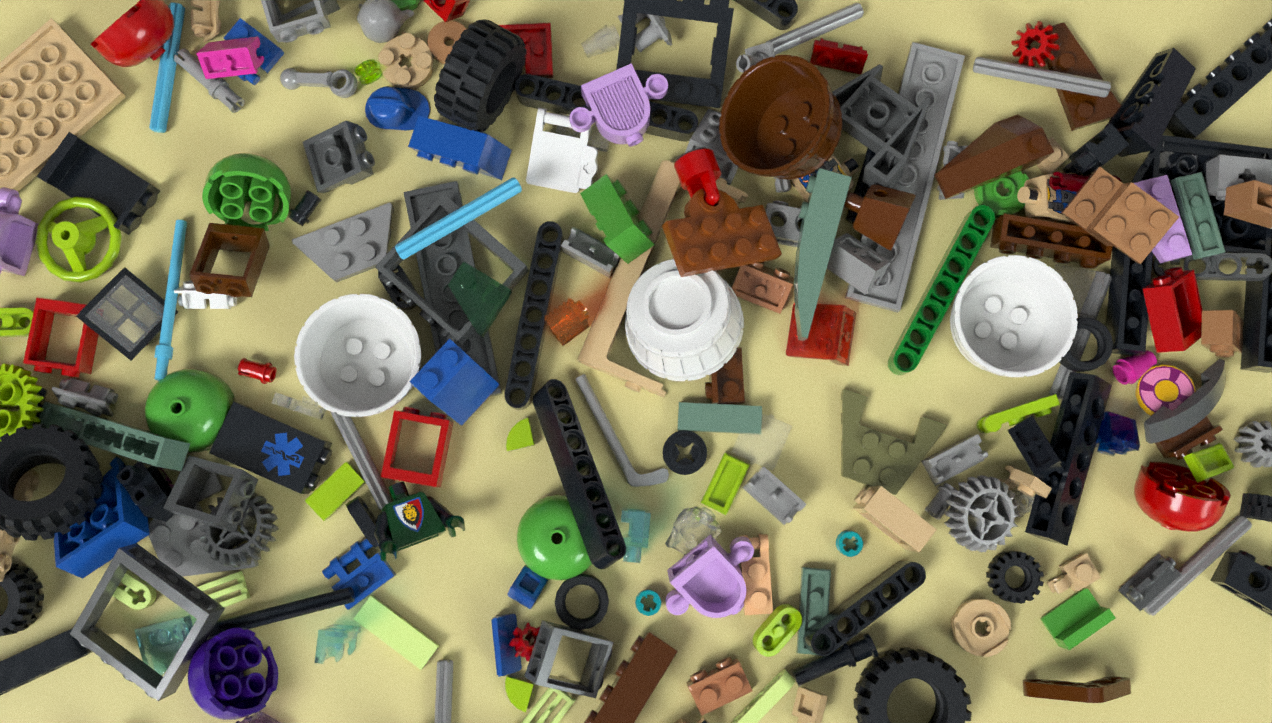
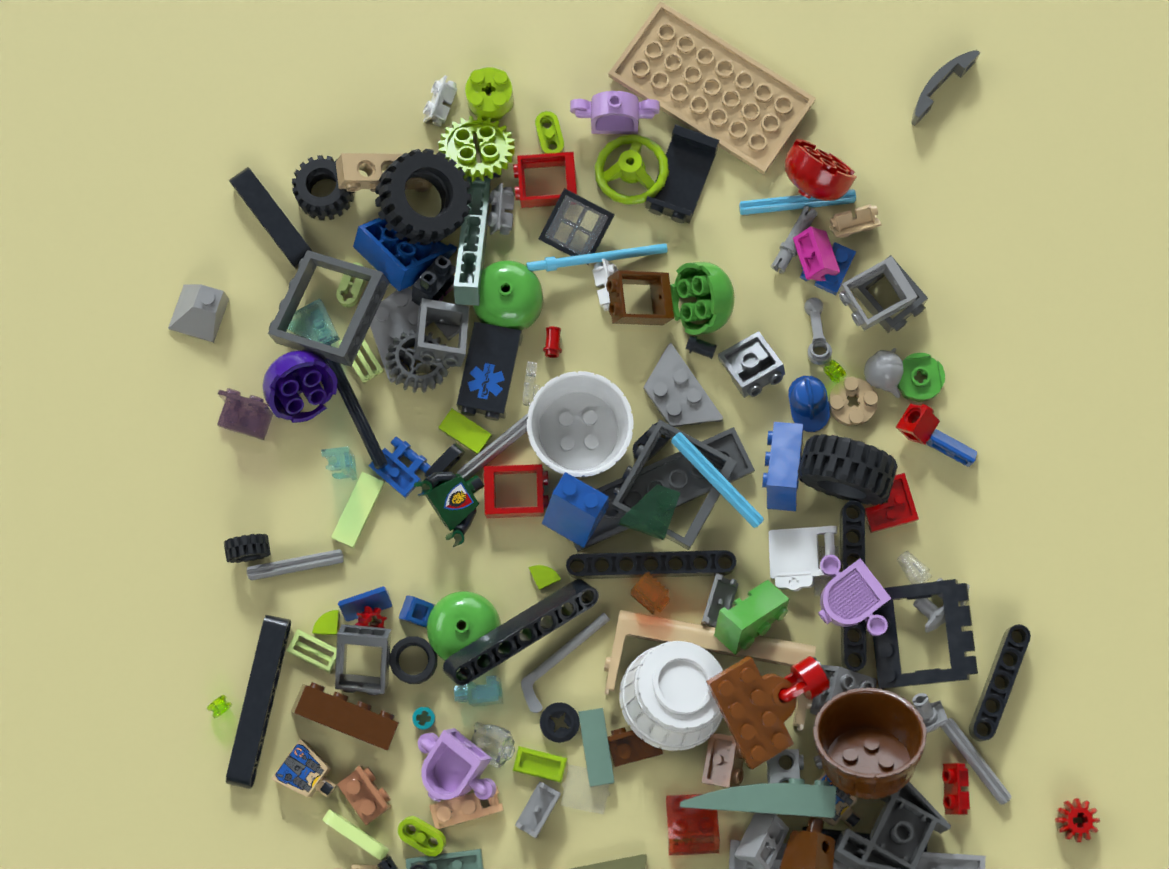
camera: 85 degrees right, 5 degrees down
(440, 35) = (884, 424): medium nougat piece -> none

